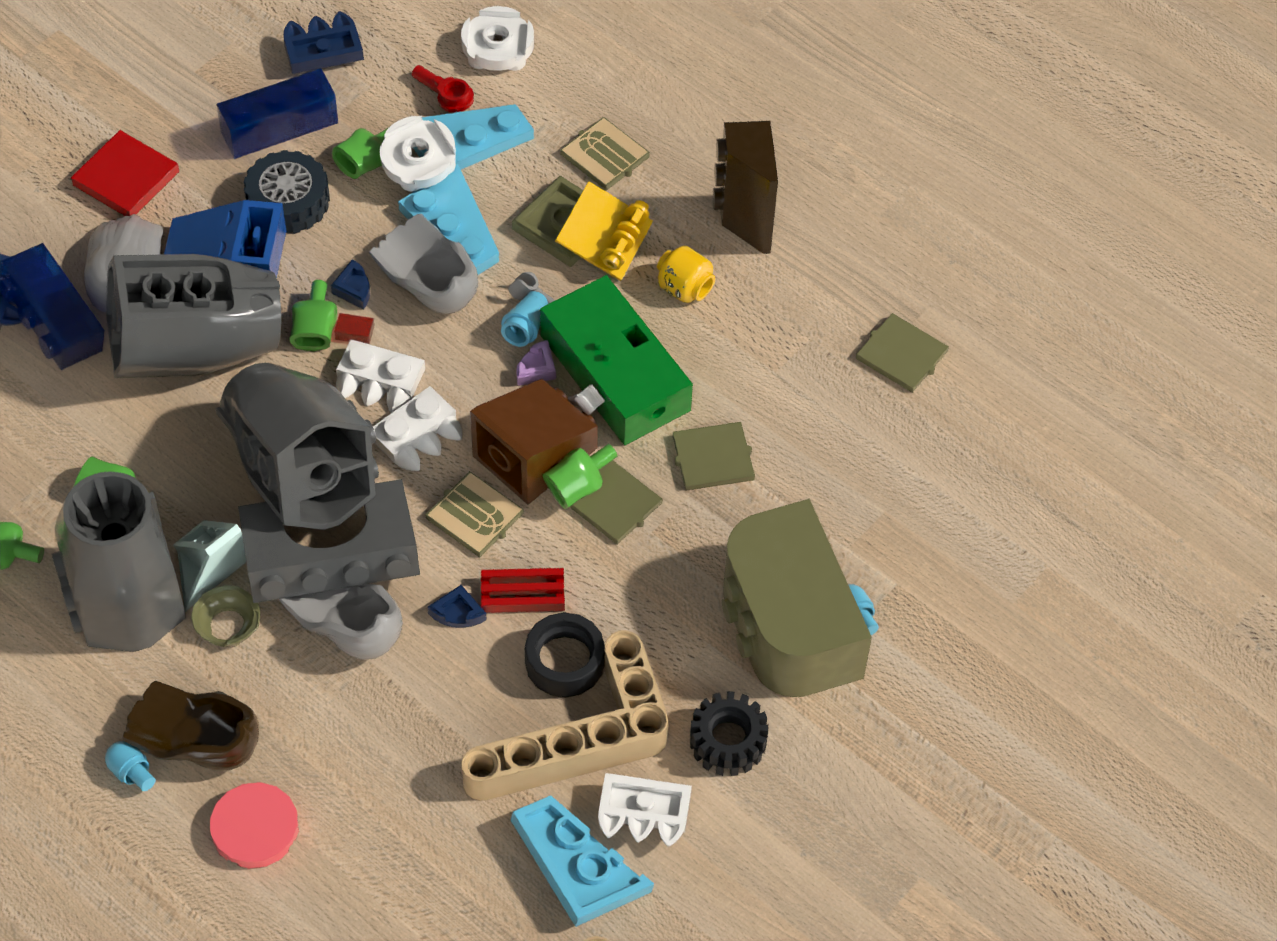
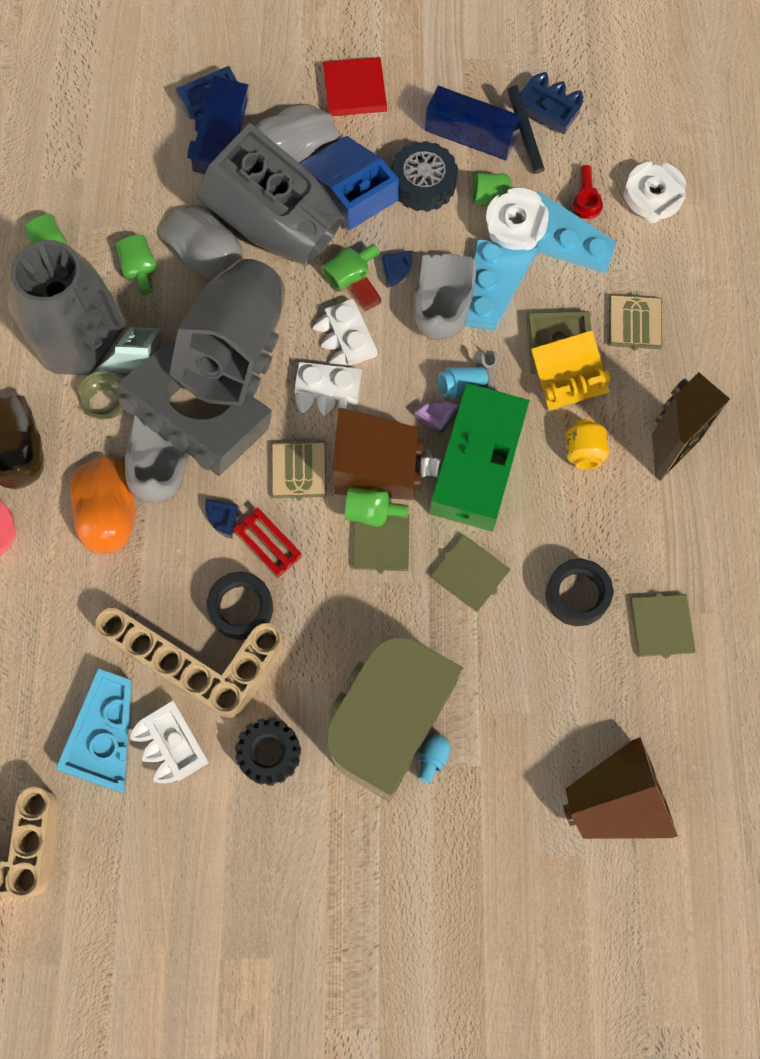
camera: 50 degrees right, 15 degrees up
(153, 414) = (201, 240): none -> light grey hair
(338, 84) = (526, 130): none -> black bar
(342, 697) = (102, 505): none -> orange hair
(815, 360) = (592, 571): none -> black tyre
(1026, 488) = (620, 799): none -> reddish brown slope

